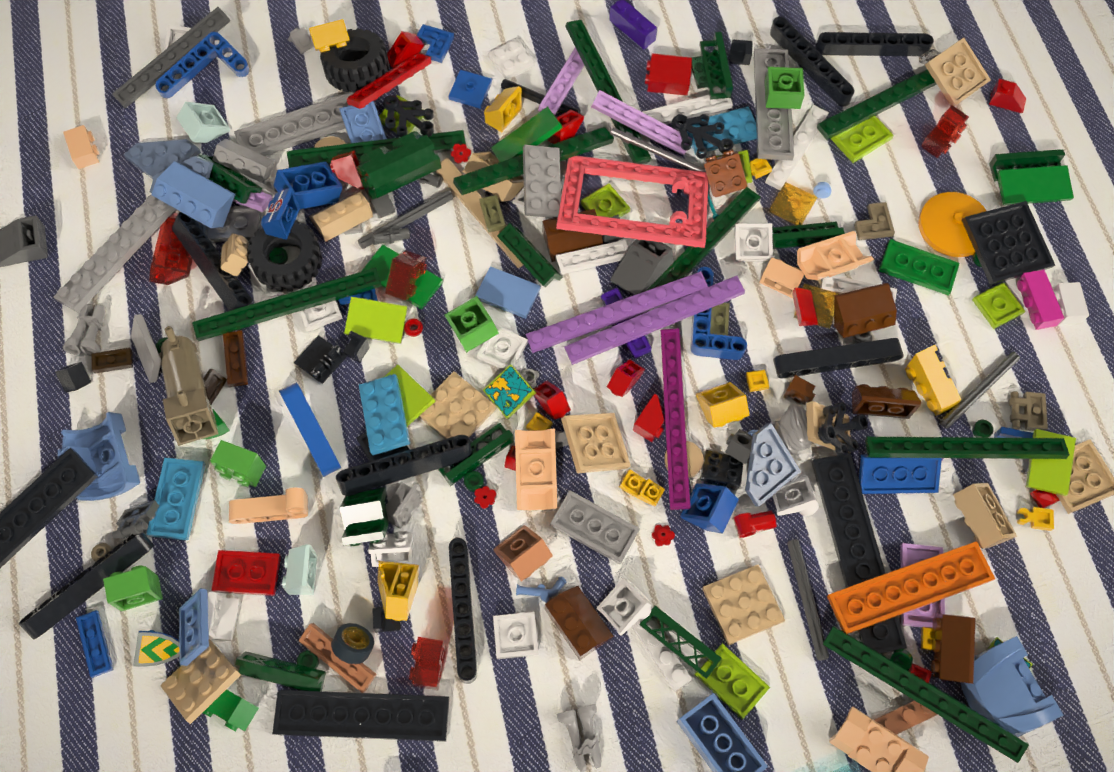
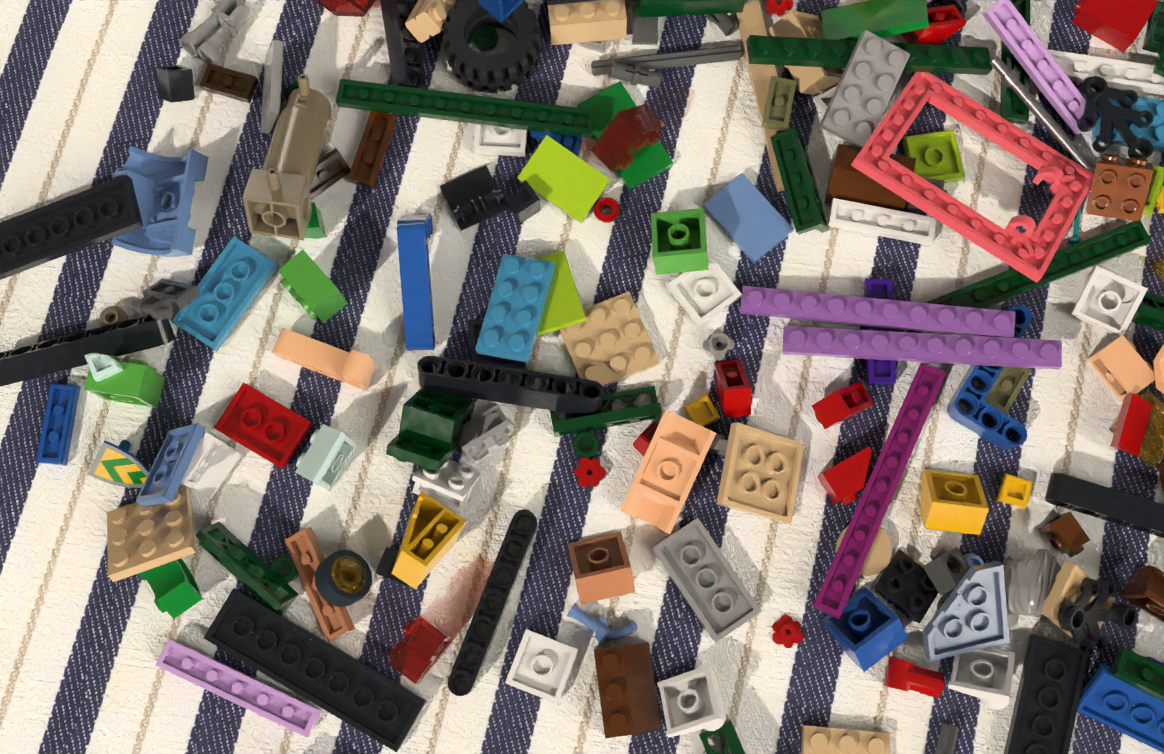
camera: 30 degrees right, 10 degrees up
(114, 580) = (102, 366): none -> light aqua tile
(313, 755) = (238, 687): none -> lavender plate
(509, 391) = (685, 351): tile -> none
(641, 488) = (790, 558): yellow slope -> none
(642, 265) = (940, 266): dark grey slope -> none

